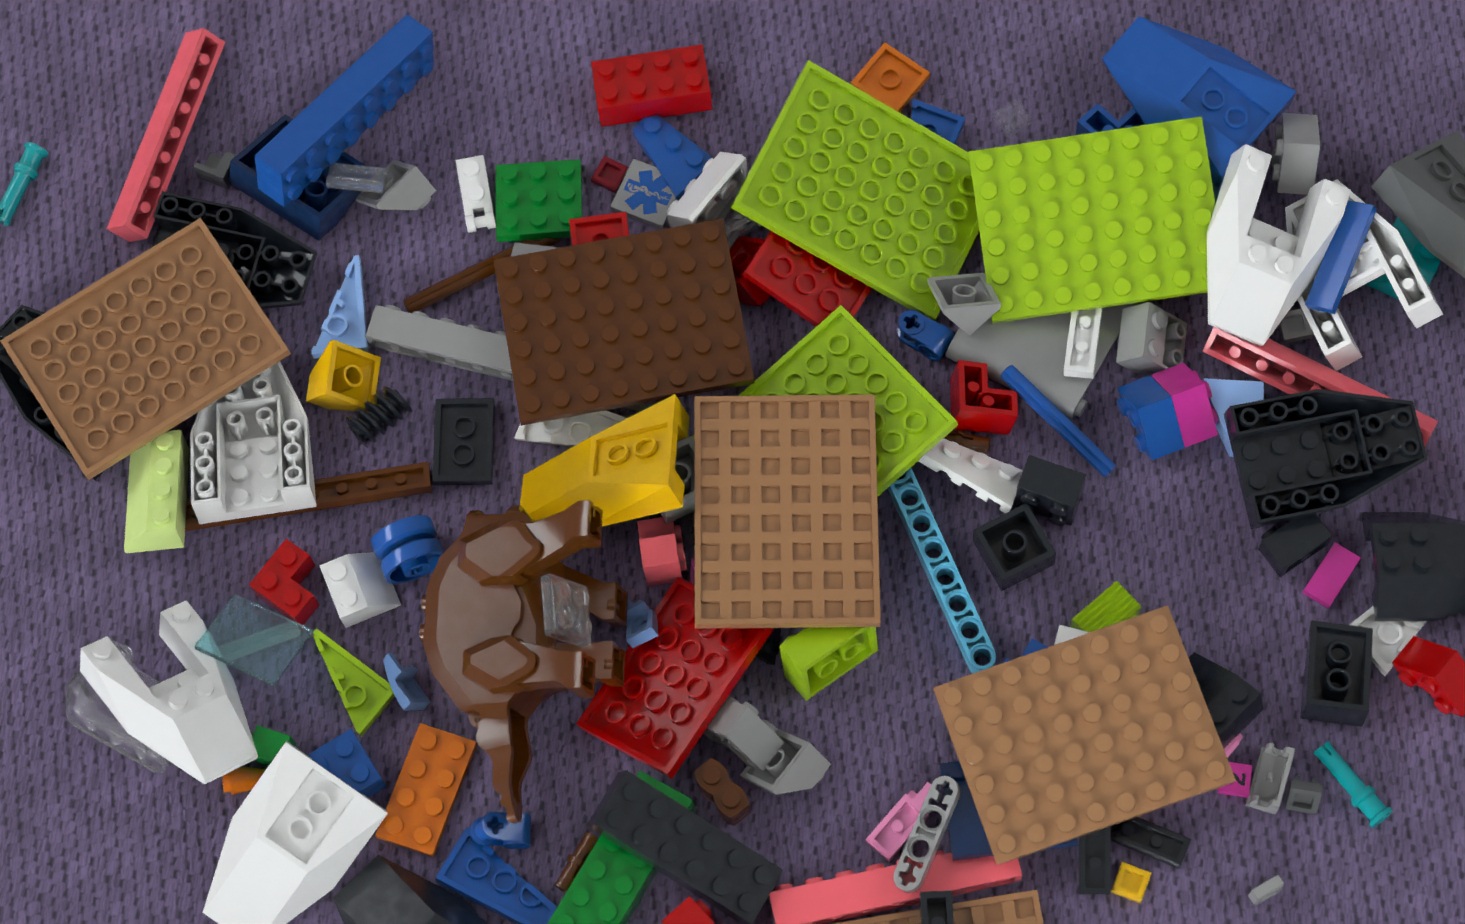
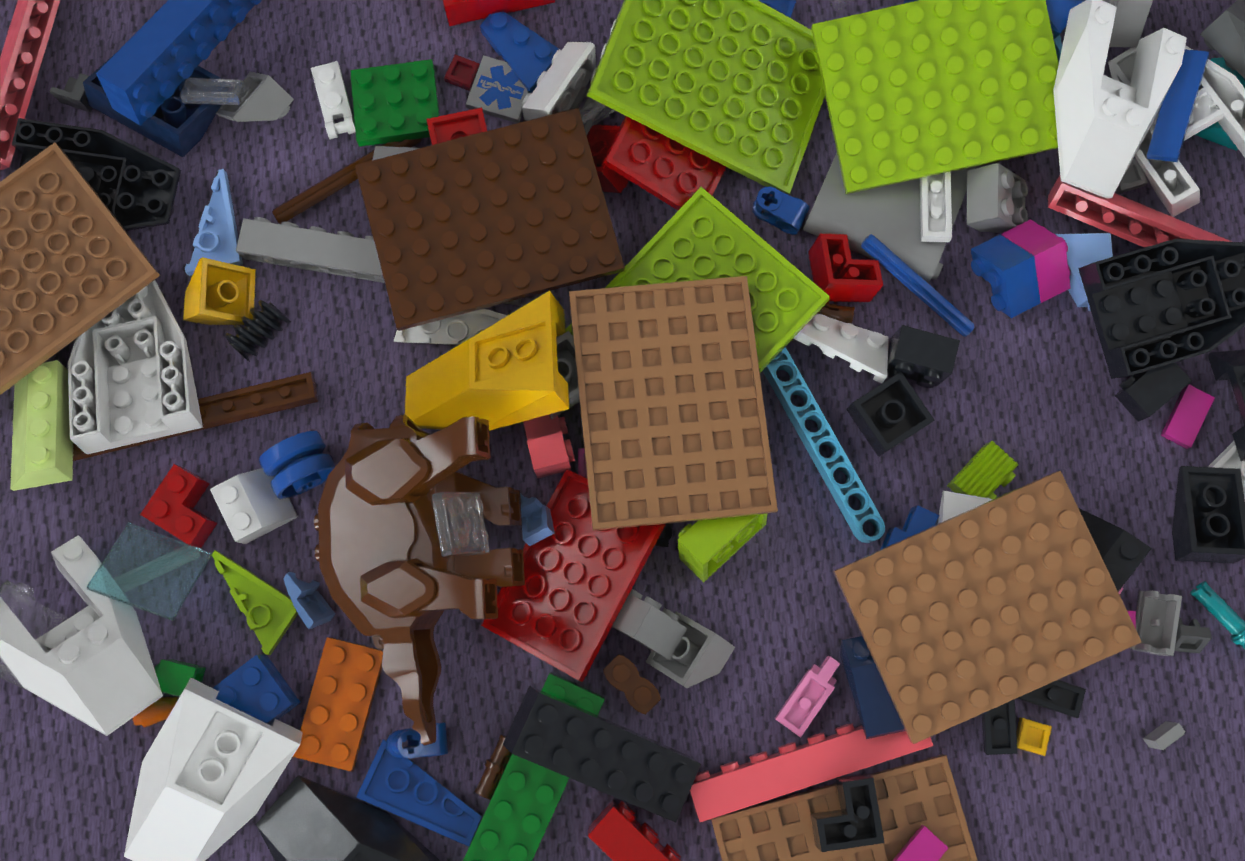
camera: 15 degrees left, 10 degrees up
(463, 441) = (344, 348): black plate -> none
(931, 835) = (843, 718): light grey beam -> none
(965, 299) = (822, 172): light grey slope -> none

